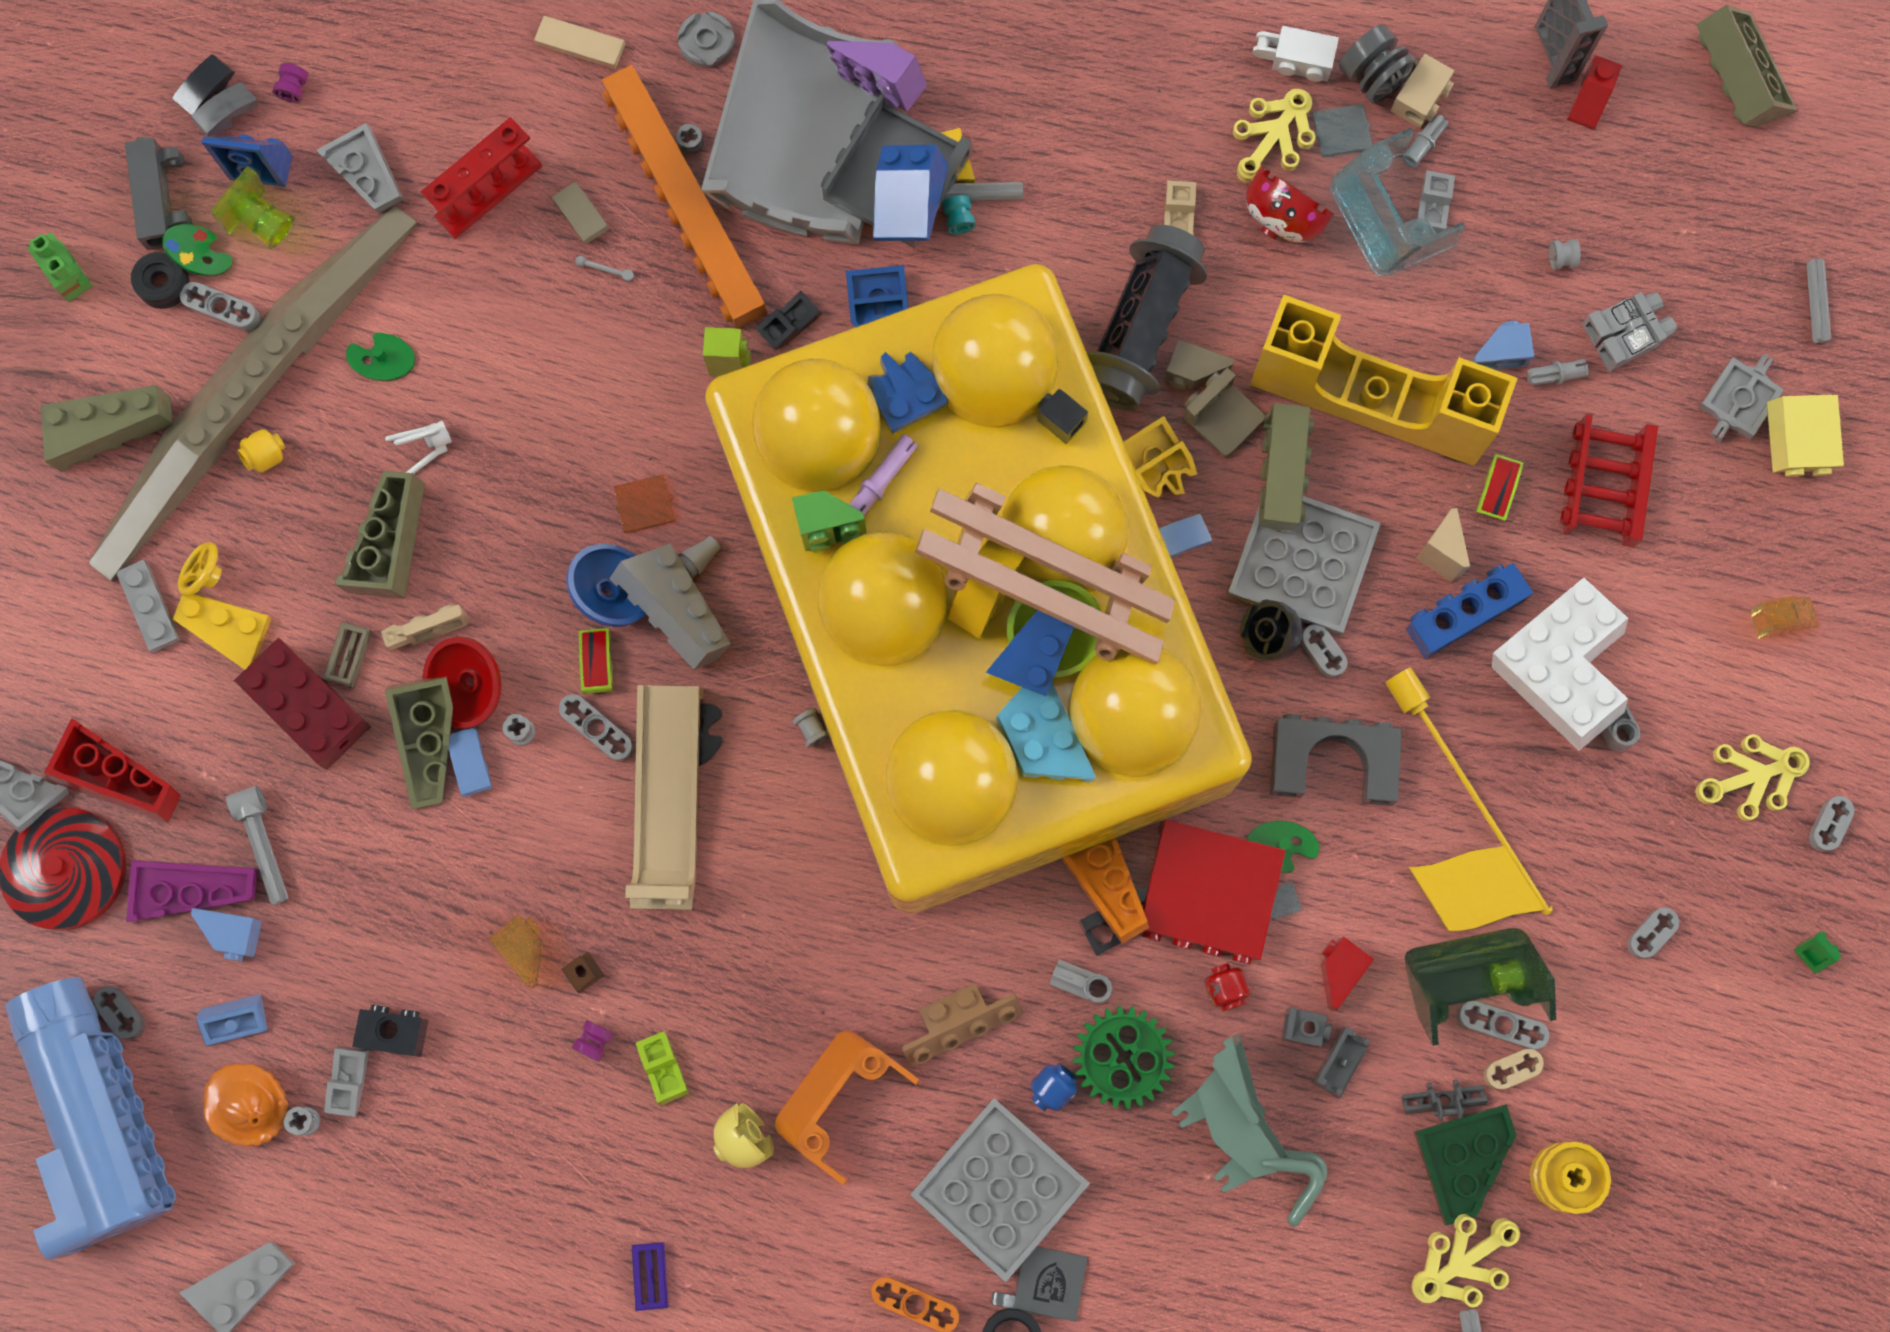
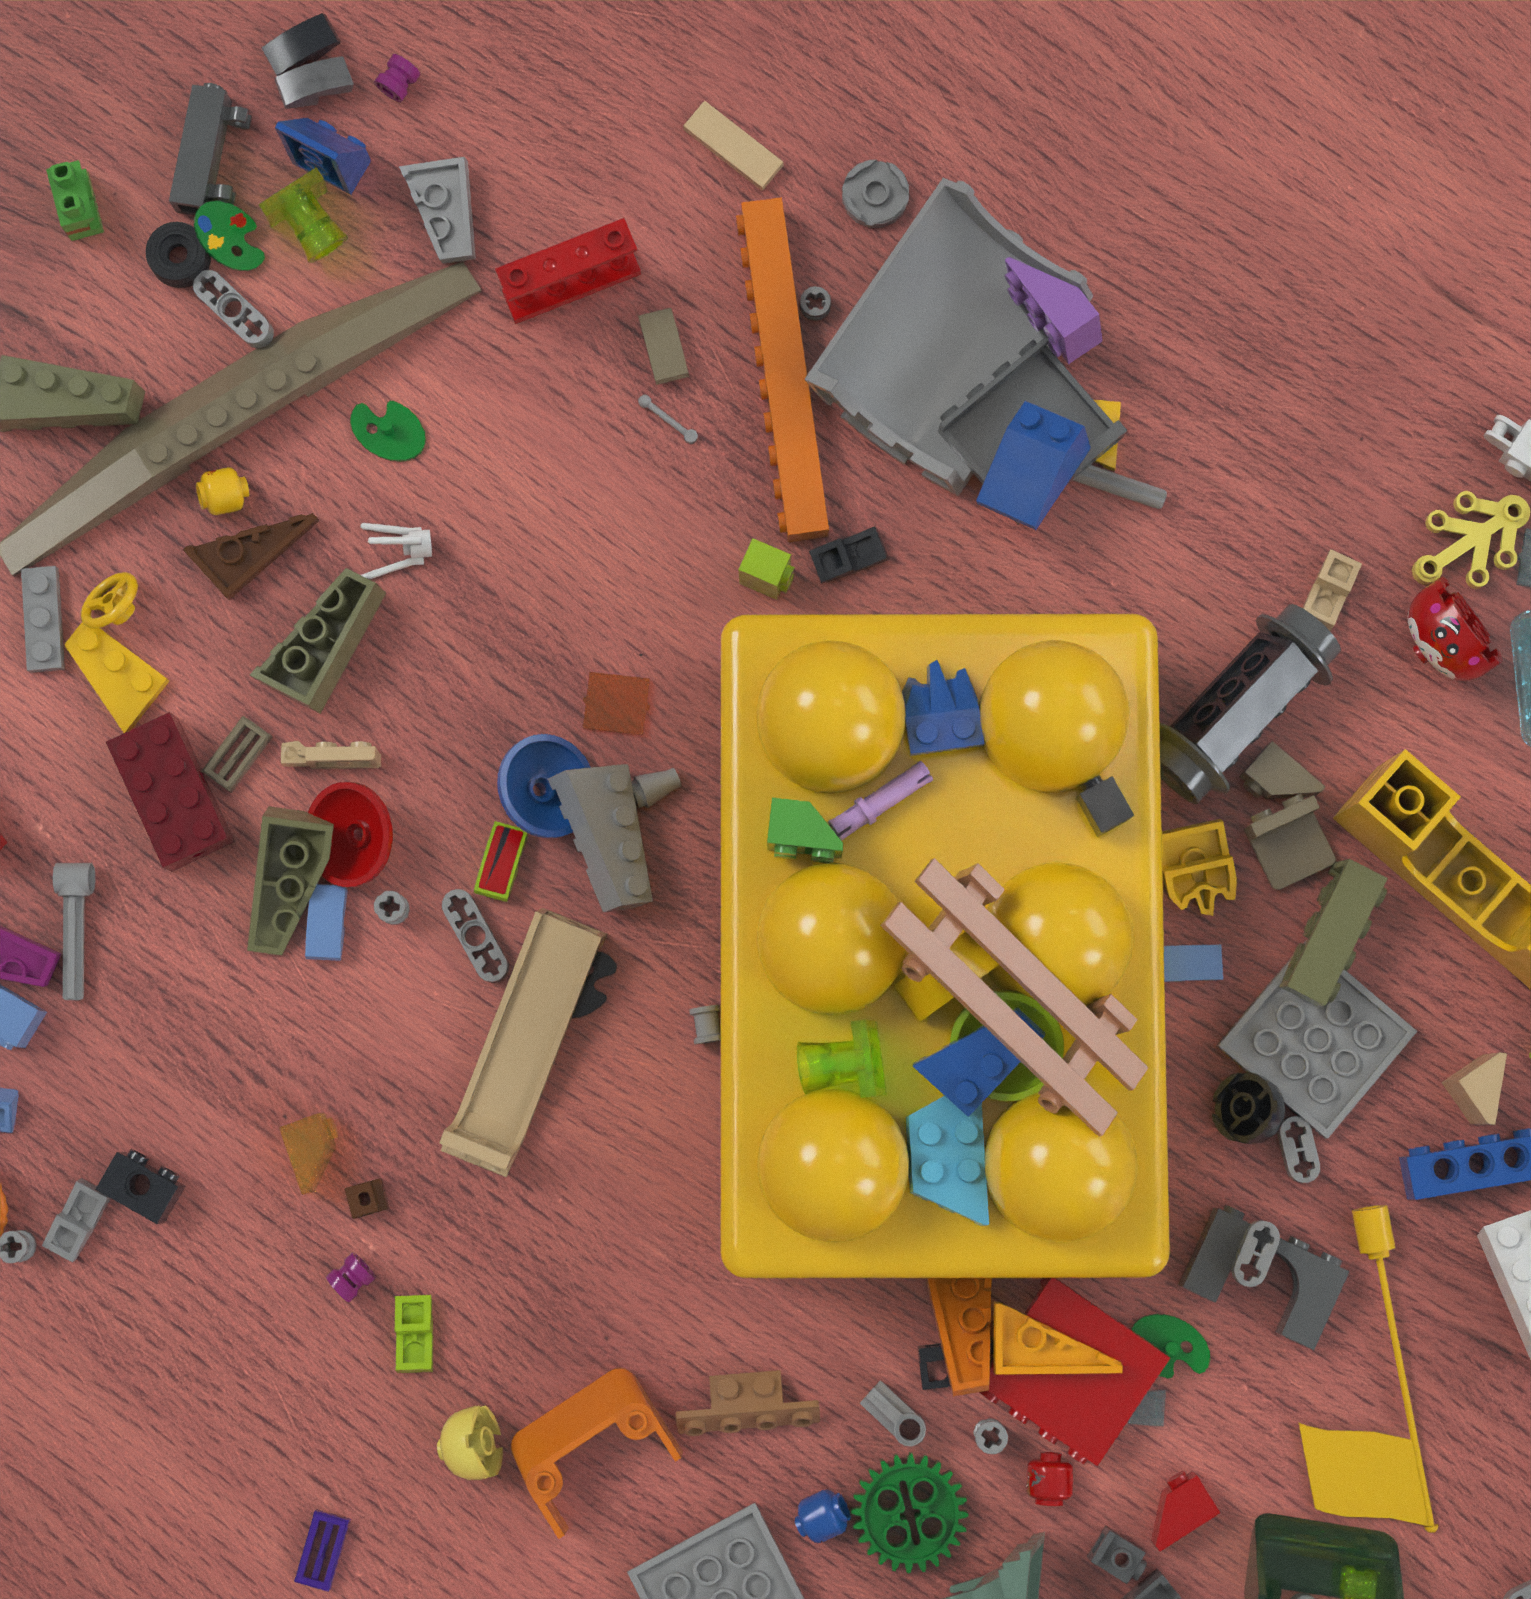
camera: 20 degrees right, 5 degrees up
(293, 500) = (239, 558): none -> reddish brown wing
(876, 293) = (956, 568): blue plate -> none
(928, 691) = (844, 1062): none -> clear neon green plant
(959, 215) = (1081, 505): teal wheel -> none
(1172, 880) = (1034, 1348): none -> light orange wing
(1173, 965) = (992, 1447): none -> light grey bush
(1328, 741) = (1247, 1250): none -> light grey beam

